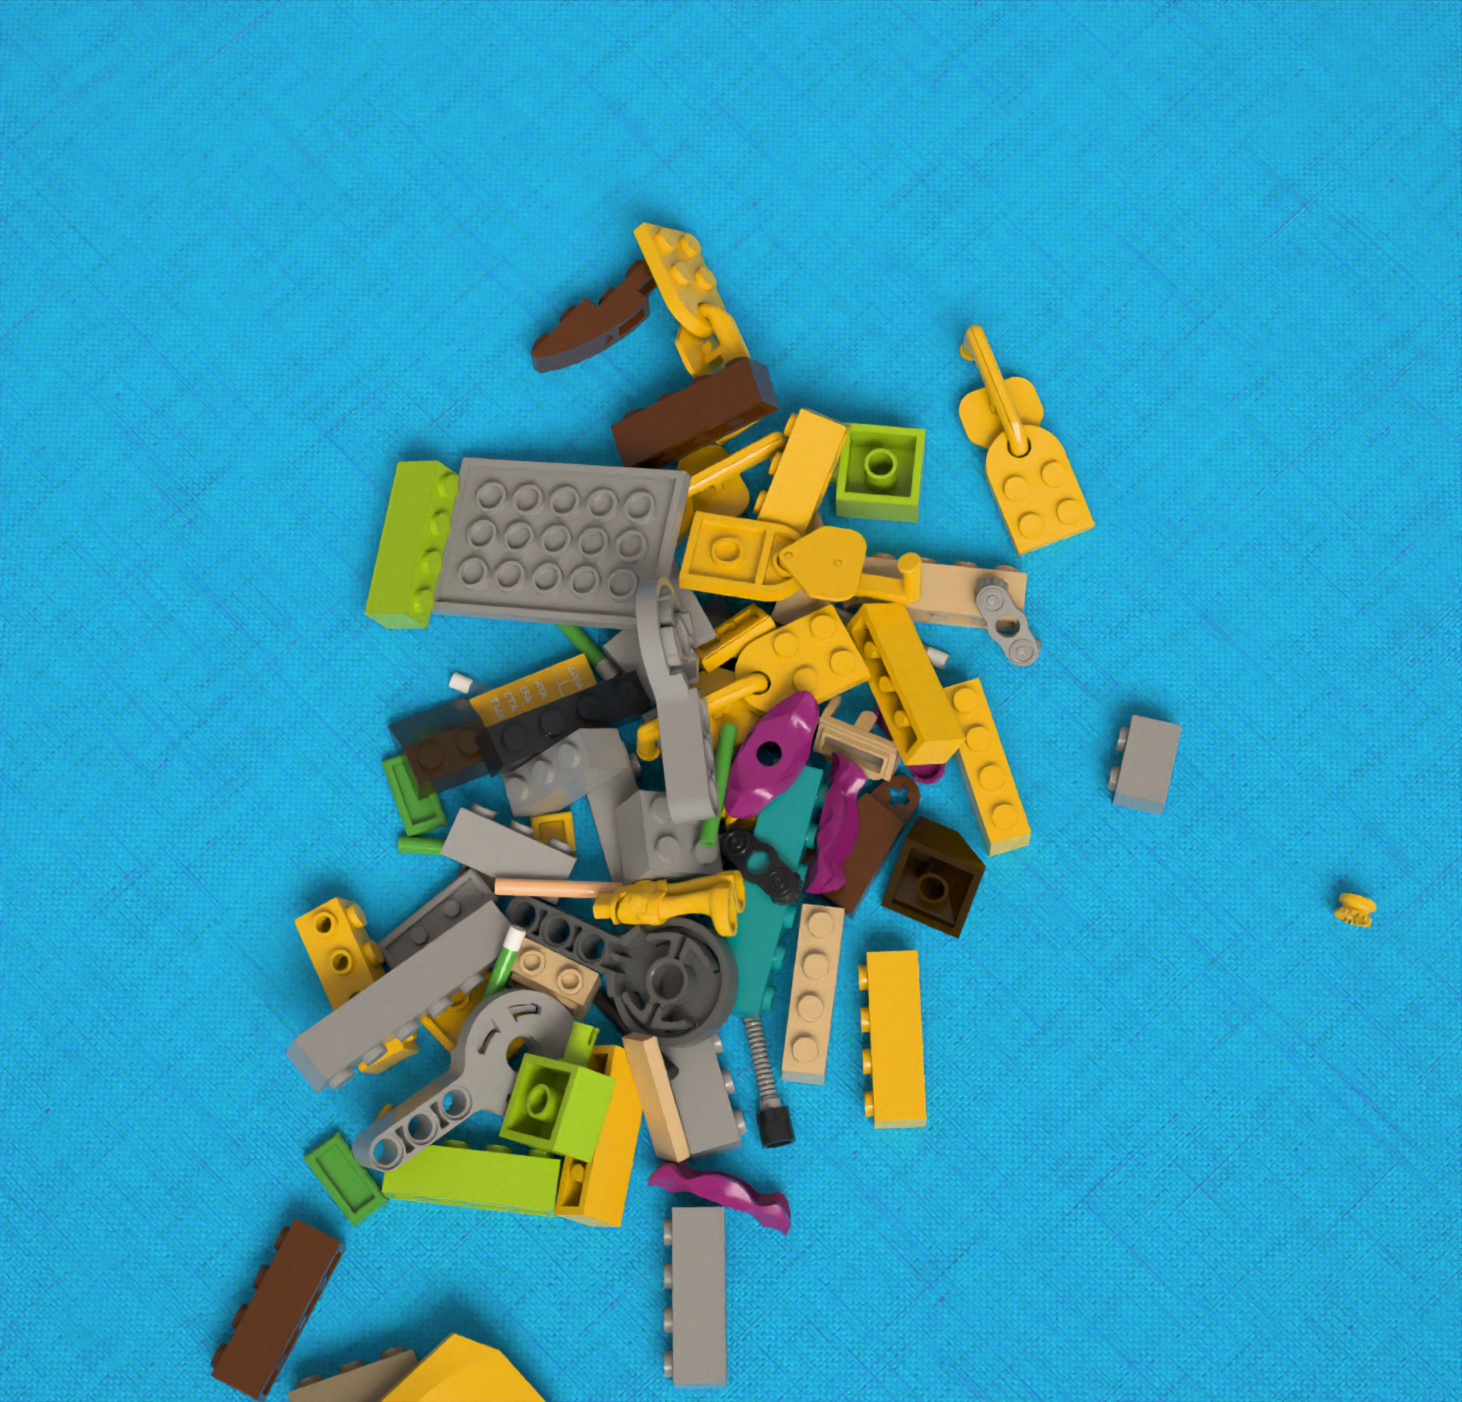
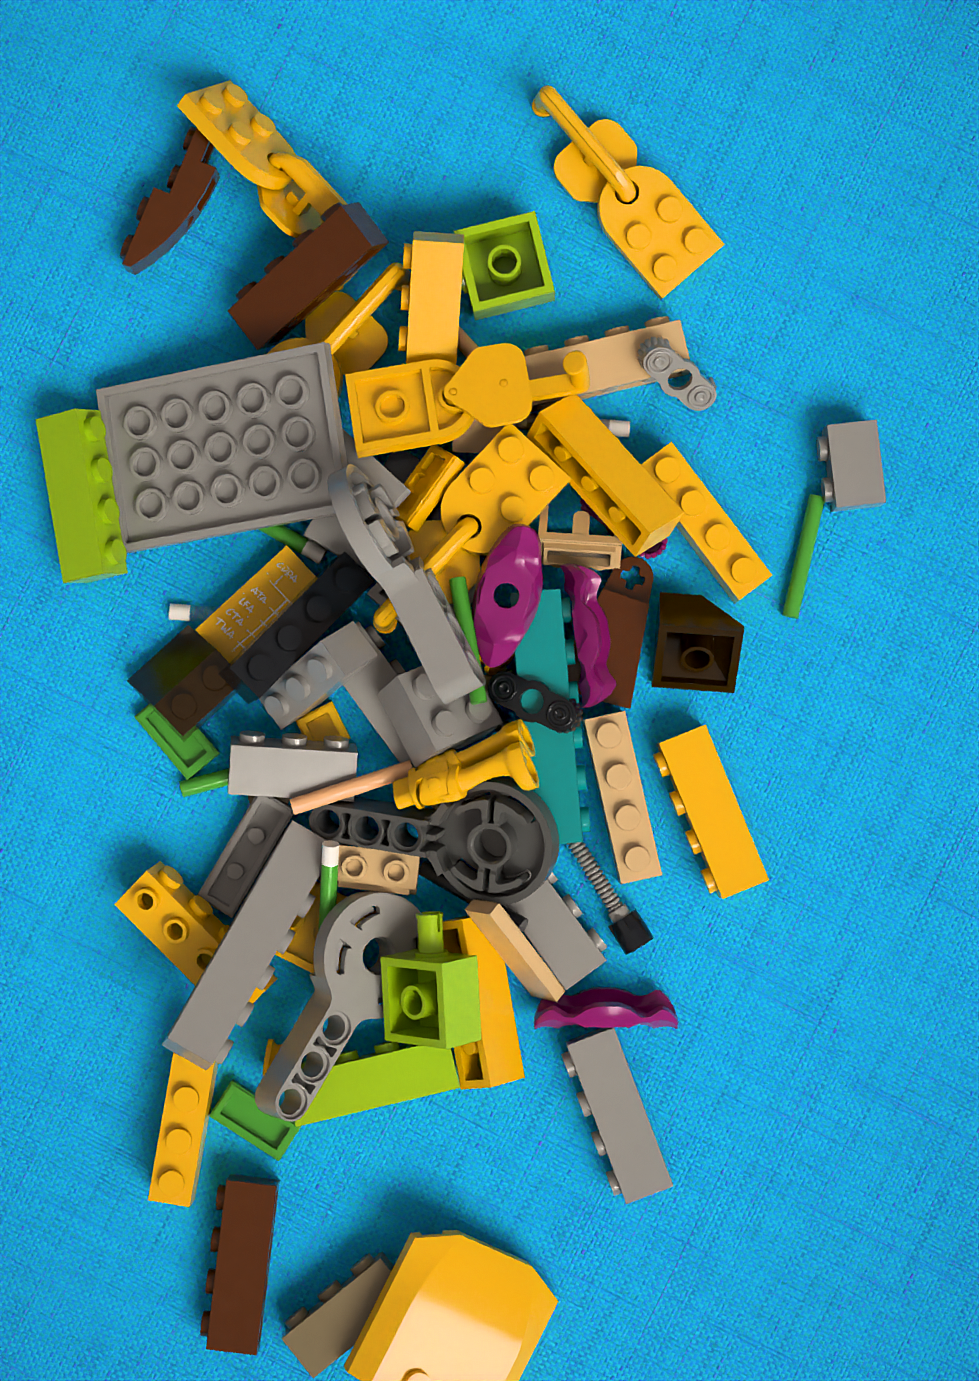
camera: 25 degrees left, 15 degrees up
(277, 1154) = (182, 1132): none -> yellow brick
(1070, 834) = (803, 556): none -> bright green piece

